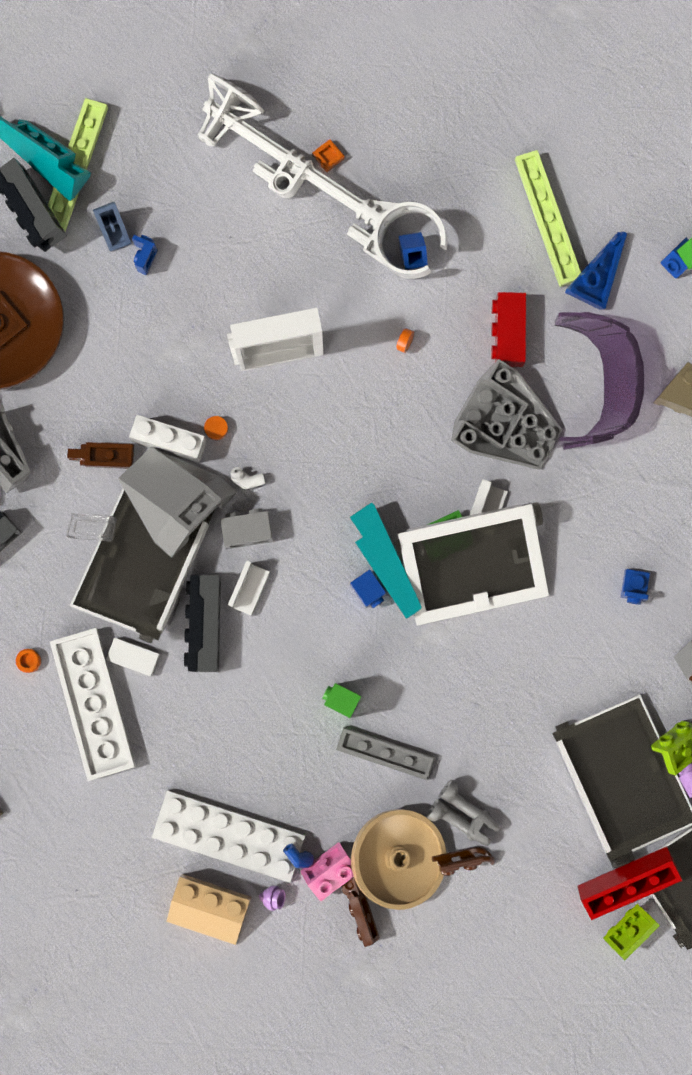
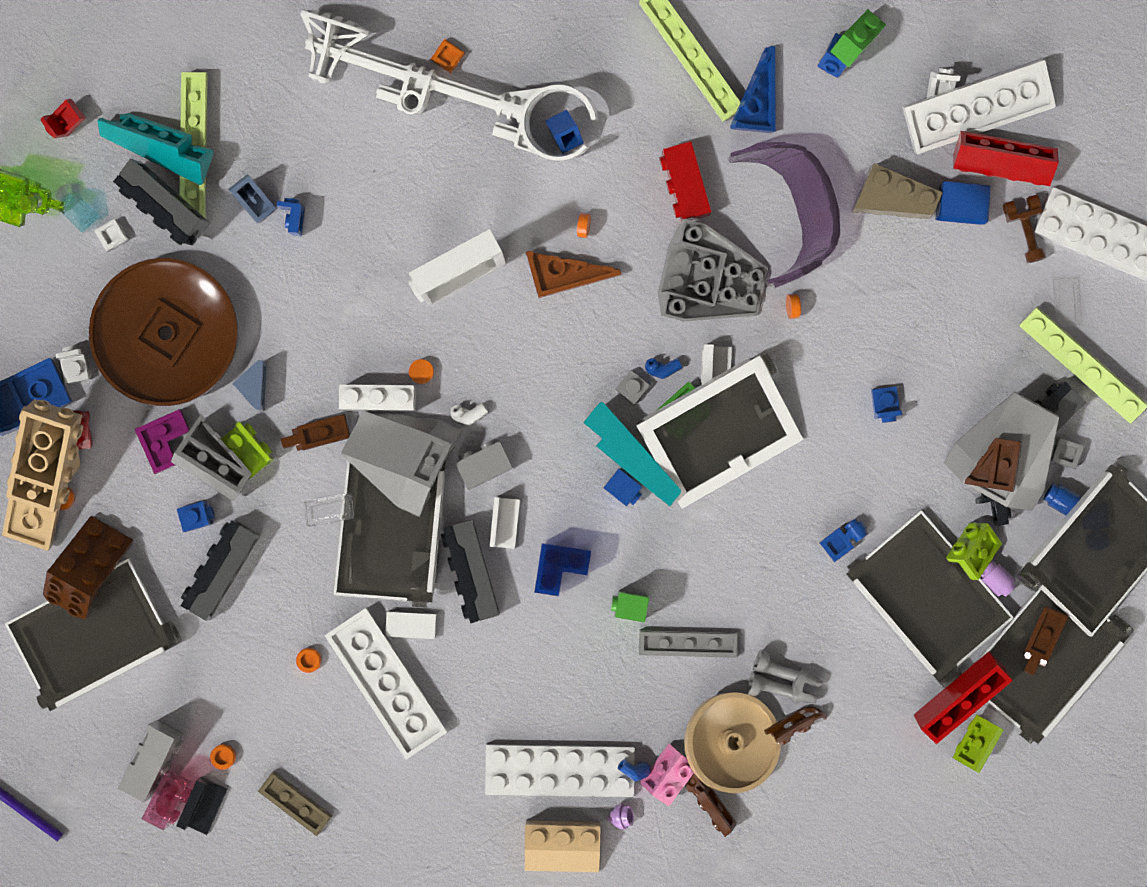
camera: 10 degrees left, 5 degrees up
(35, 449) = (248, 448): none -> lime bracket
(59, 392) = (253, 384): none -> sand blue slope
(286, 637) = (555, 561): none -> clear blue brick
(367, 378) = (558, 274): none -> dark orange wing
(405, 500) = (632, 387): none -> light grey plate
(437, 493) = (660, 369): none -> blue arm
(553, 702) = (838, 543): none -> blue plate
(575, 470) = (793, 306): none -> orange tile

